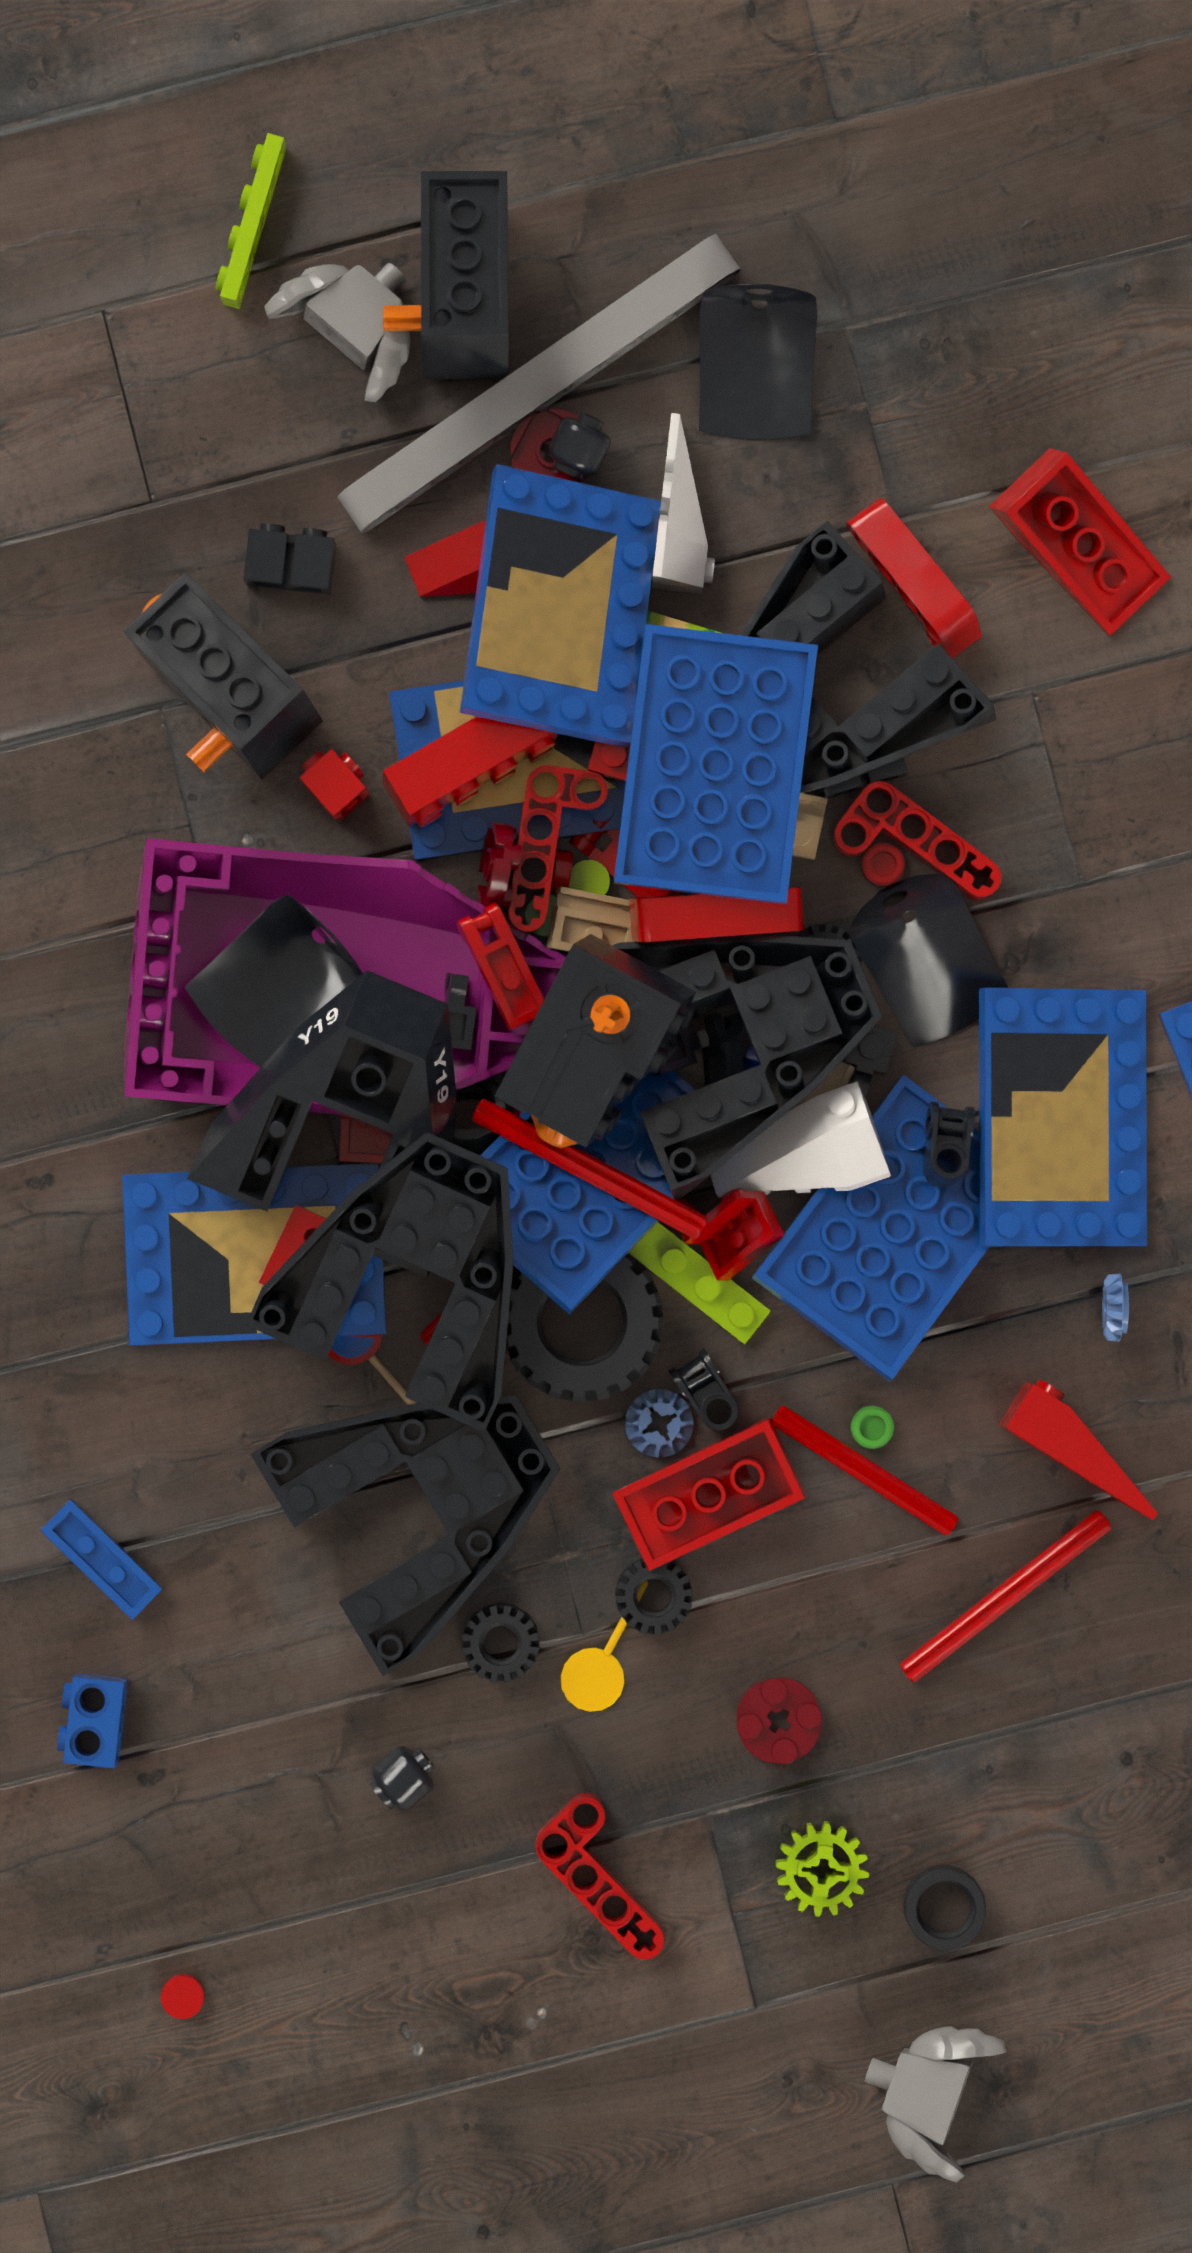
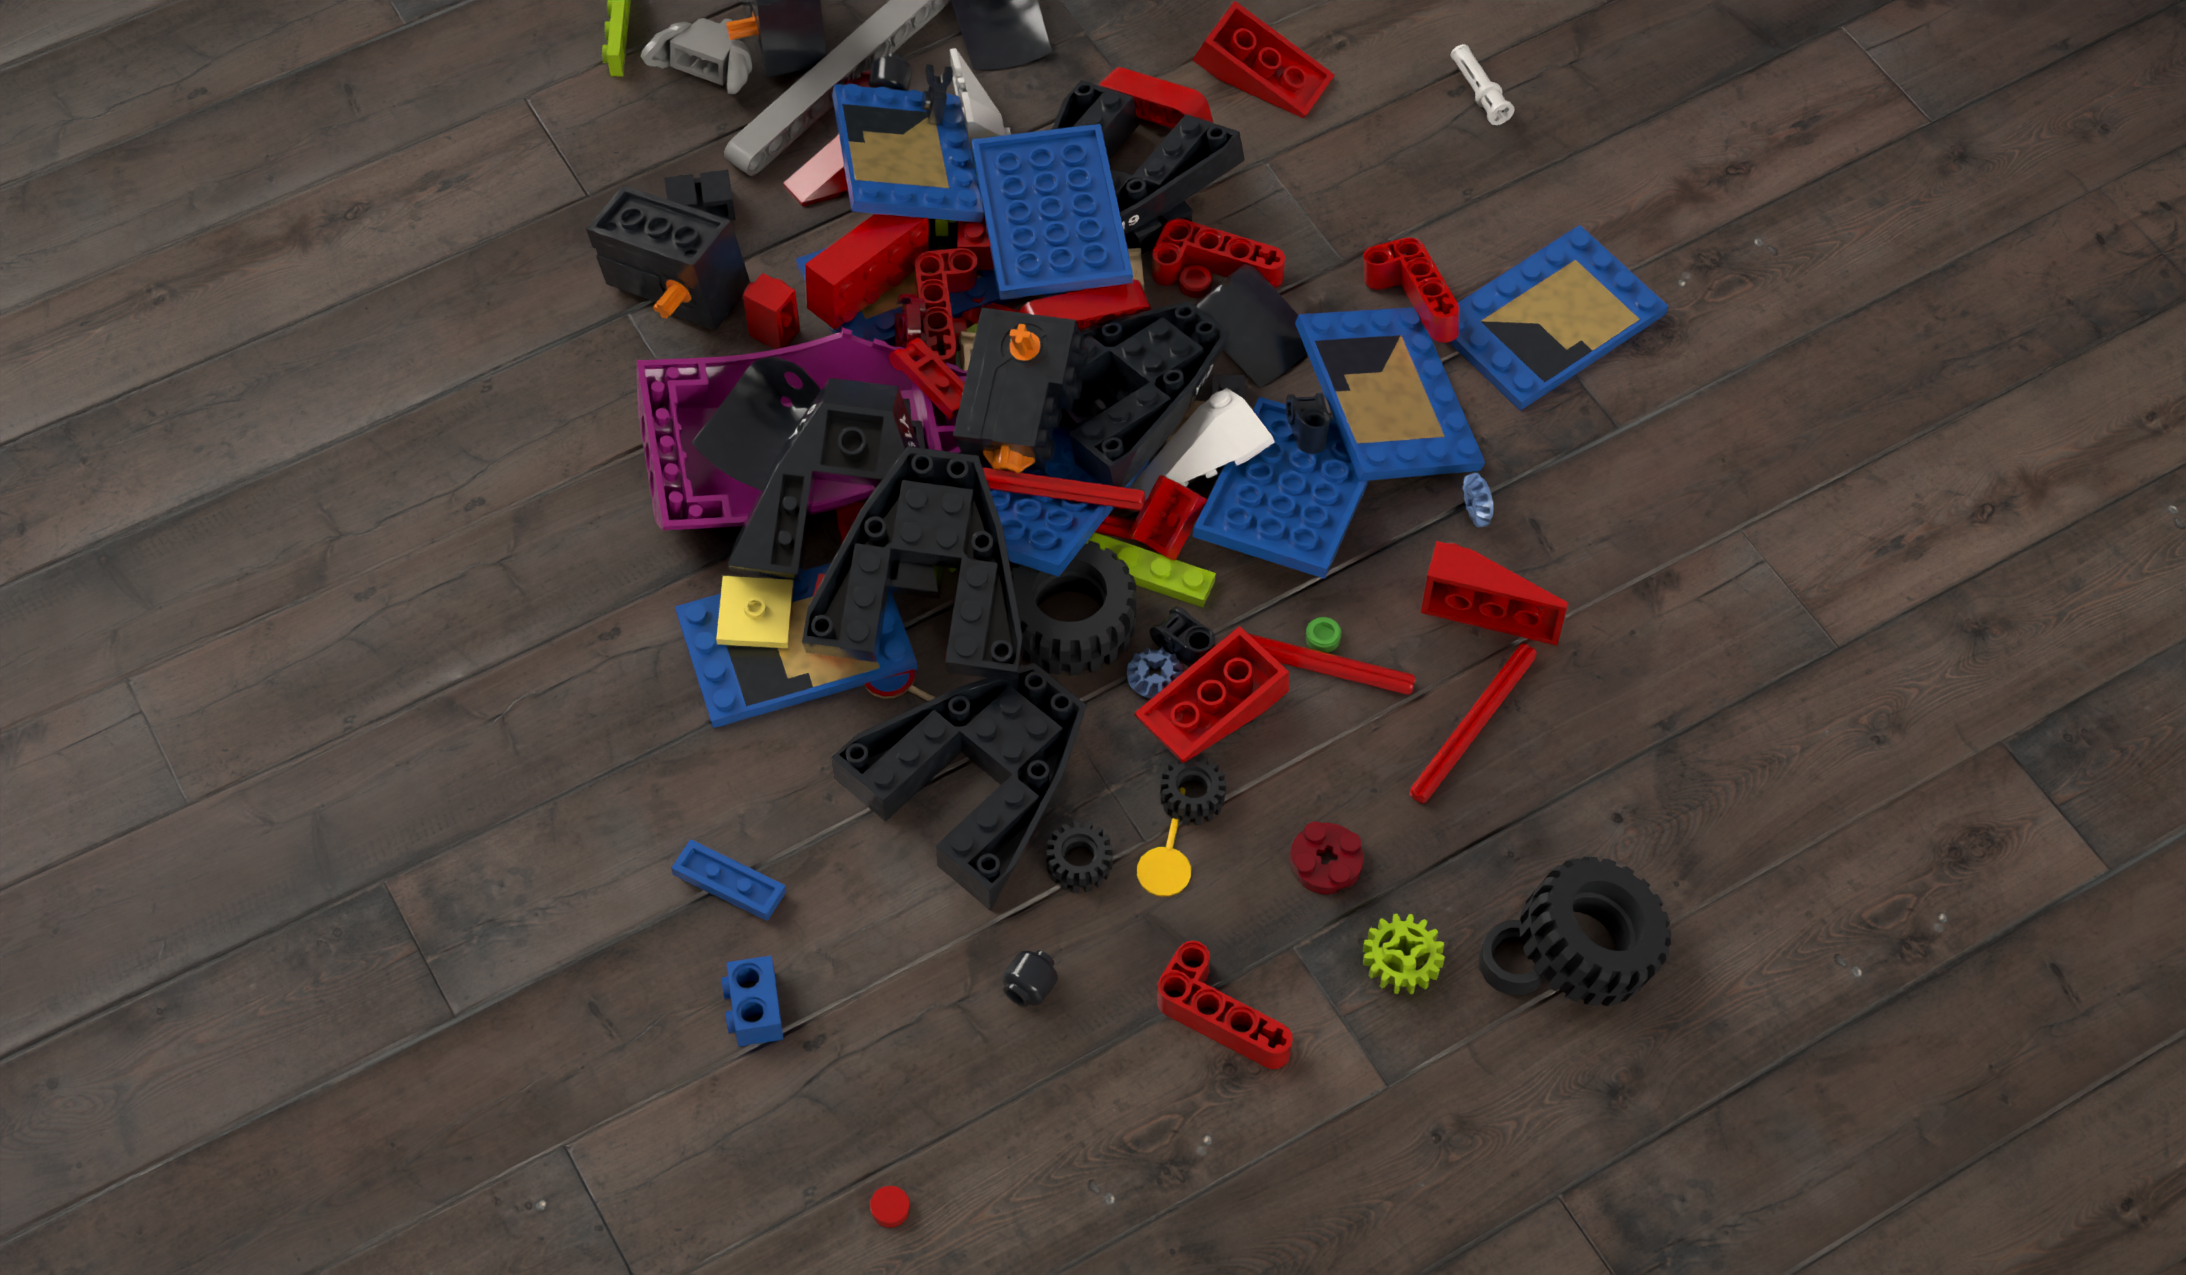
camera: 15 degrees left, 30 degrees down
(209, 1226) = (755, 612): none -> light yellow plate
(620, 529) = (935, 98): none -> black plate
(927, 2092) = (1558, 1100): light grey torso -> none
(1084, 1937) = (1572, 959): none -> black tyre
(1152, 979) = (1409, 264): none -> red beam

